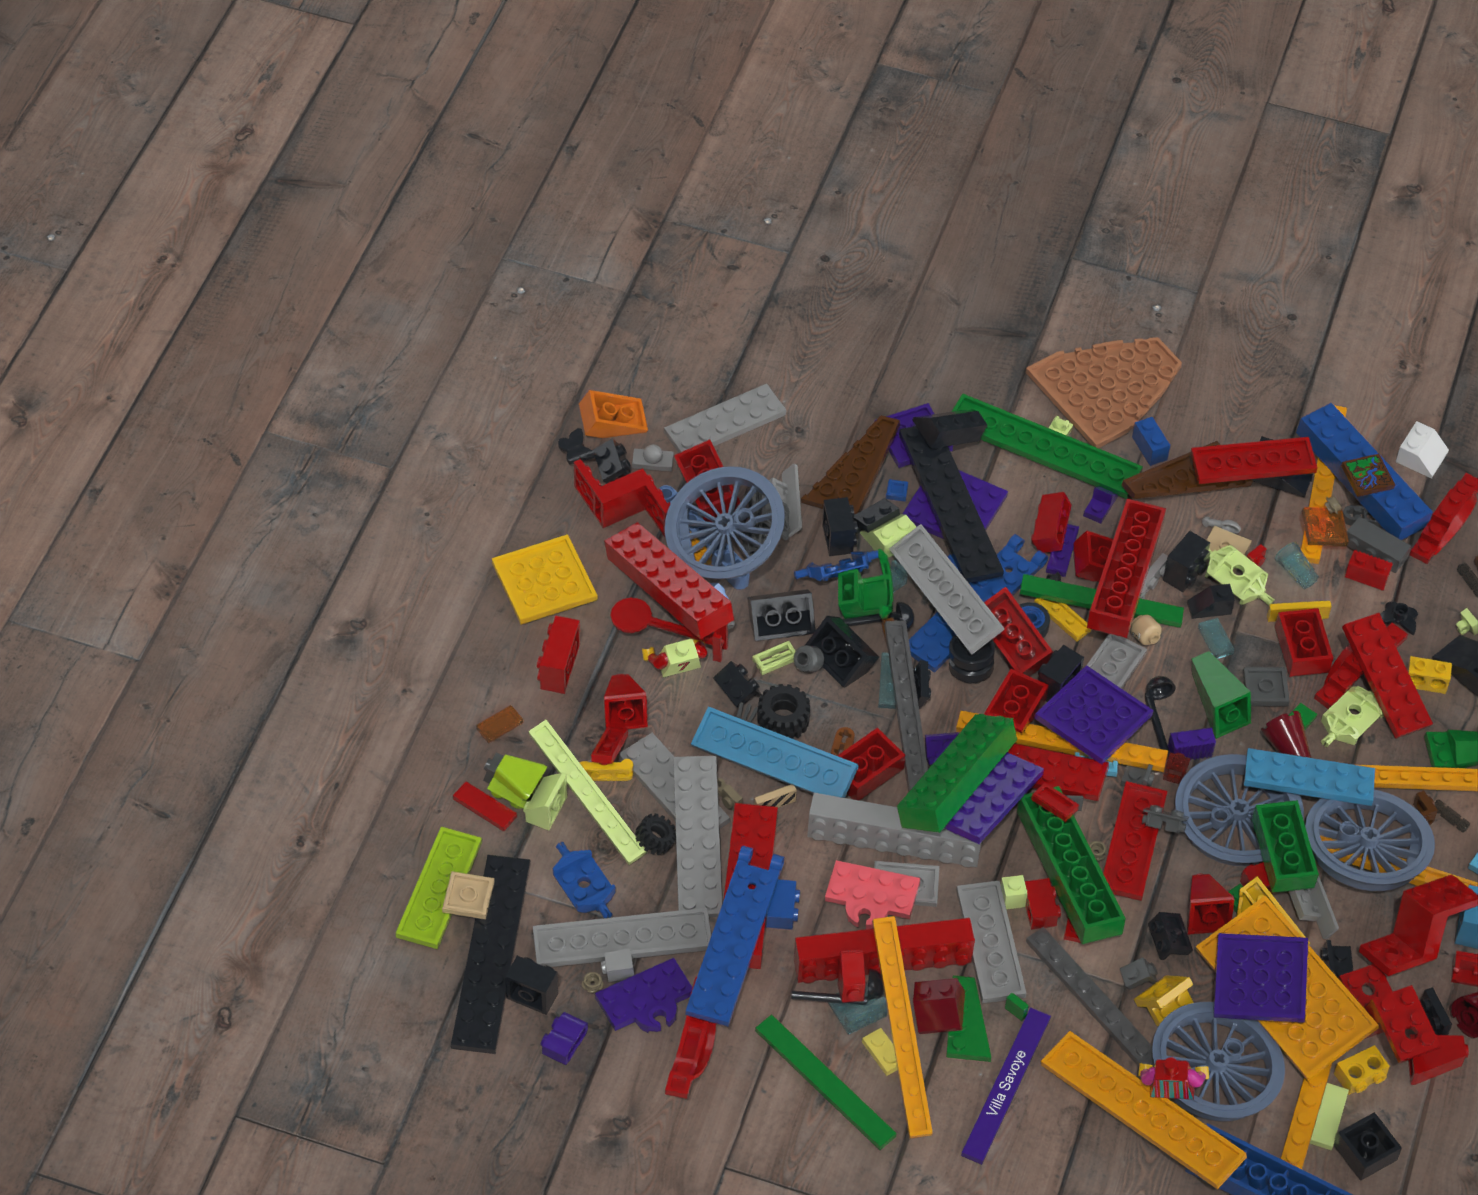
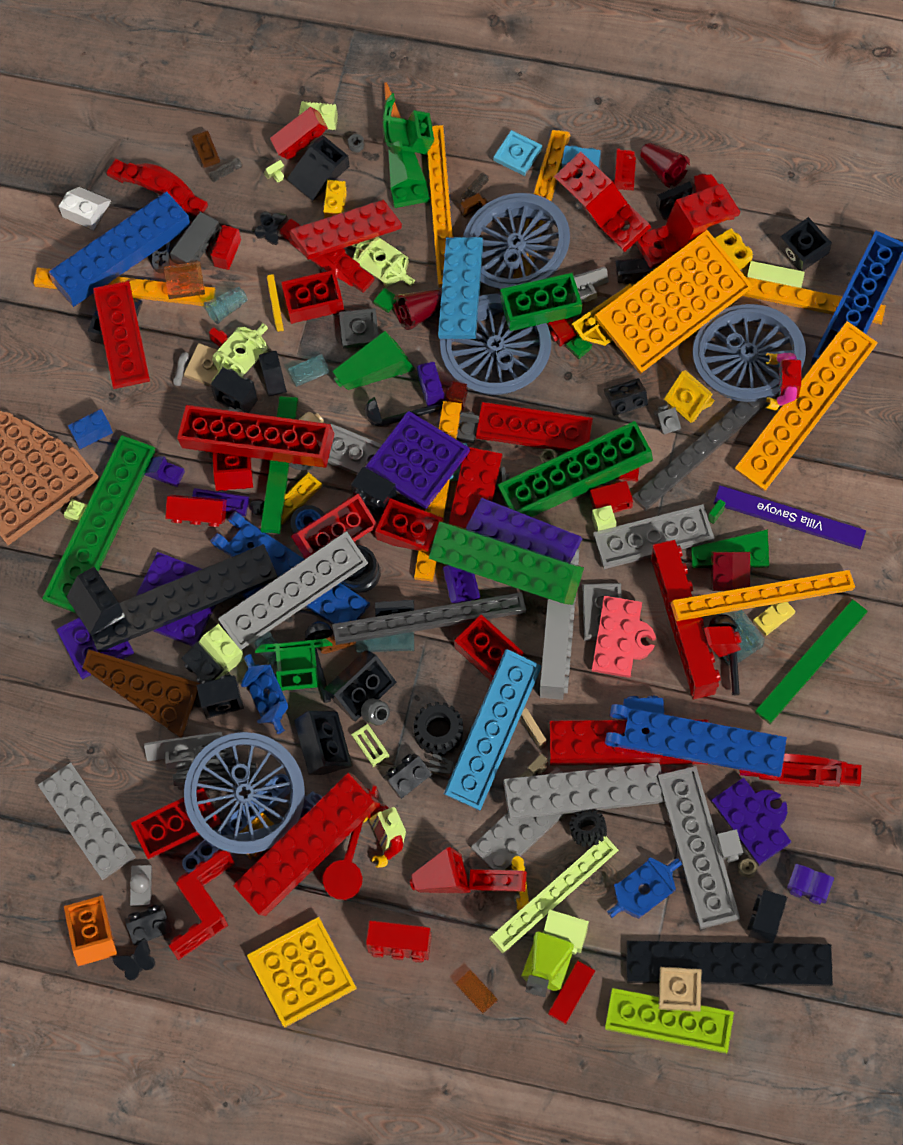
camera: 90 degrees left, 15 degrees up
(838, 744) = (464, 681): dark orange beam -> none
(897, 490) = (161, 652): blue tile -> none
(1055, 802) = (518, 485): red tile -> none
(1173, 819) = (518, 391): dark grey hinge -> none
(1174, 478) = (131, 404): reddish brown wing -> none
(1209, 905) = (592, 367): red slope -> none
(1261, 977) = (675, 316): dark purple plate -> none
(1333, 504) = (166, 270): dark tan plate -> none
(1368, 475) = (136, 239): reddish brown tile -> none

